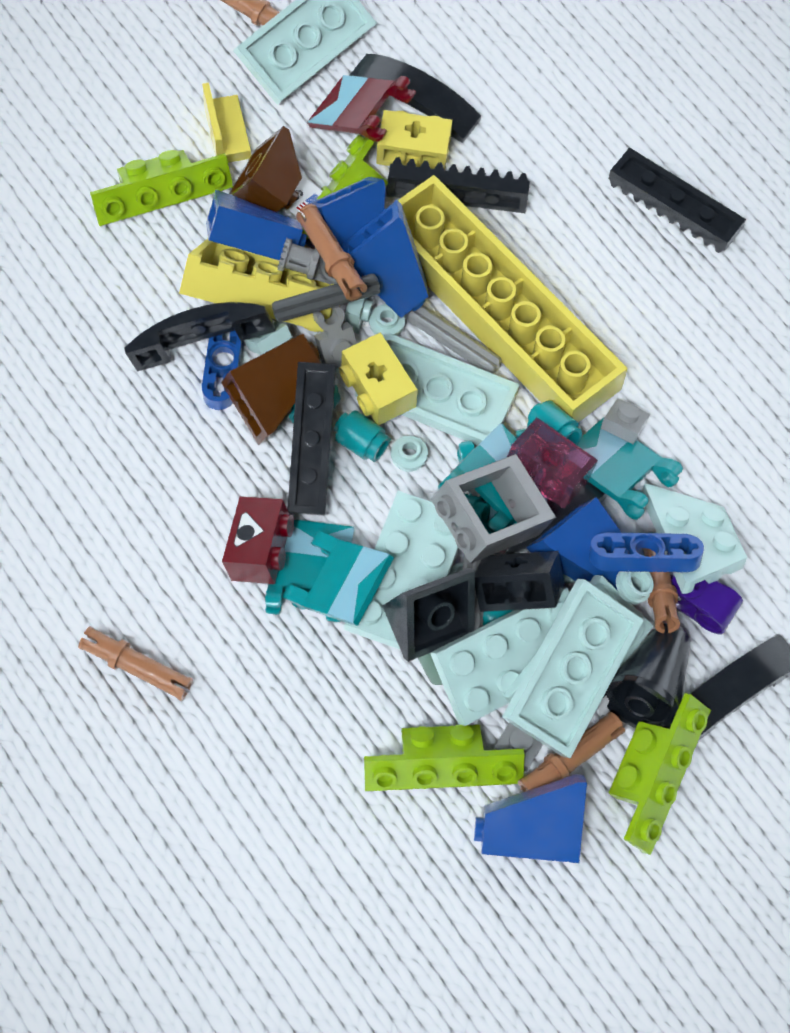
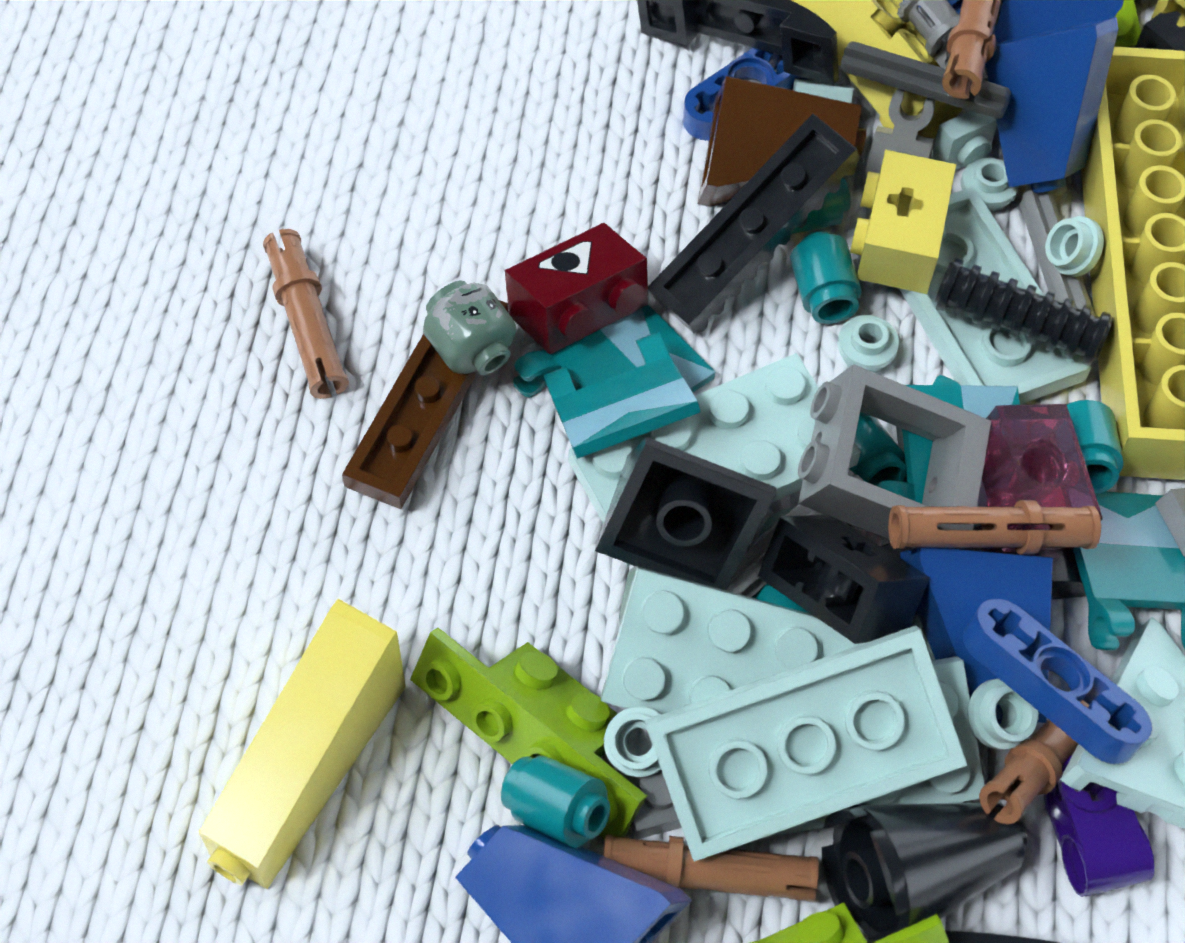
camera: 45 degrees right, 5 degrees down
(237, 604) = (469, 328): none -> sand green head
(237, 653) = (407, 427): none -> reddish brown plate
(362, 859) = (305, 745): none -> light yellow slope
(454, 329) = (1074, 245): none -> light aqua plate
(470, 382) = (1023, 311): none -> black piece
(490, 784) = (556, 799): none -> teal brick
(496, 742) = (617, 746): none -> light aqua plate
(575, 494) = (1067, 527): none -> nougat pin

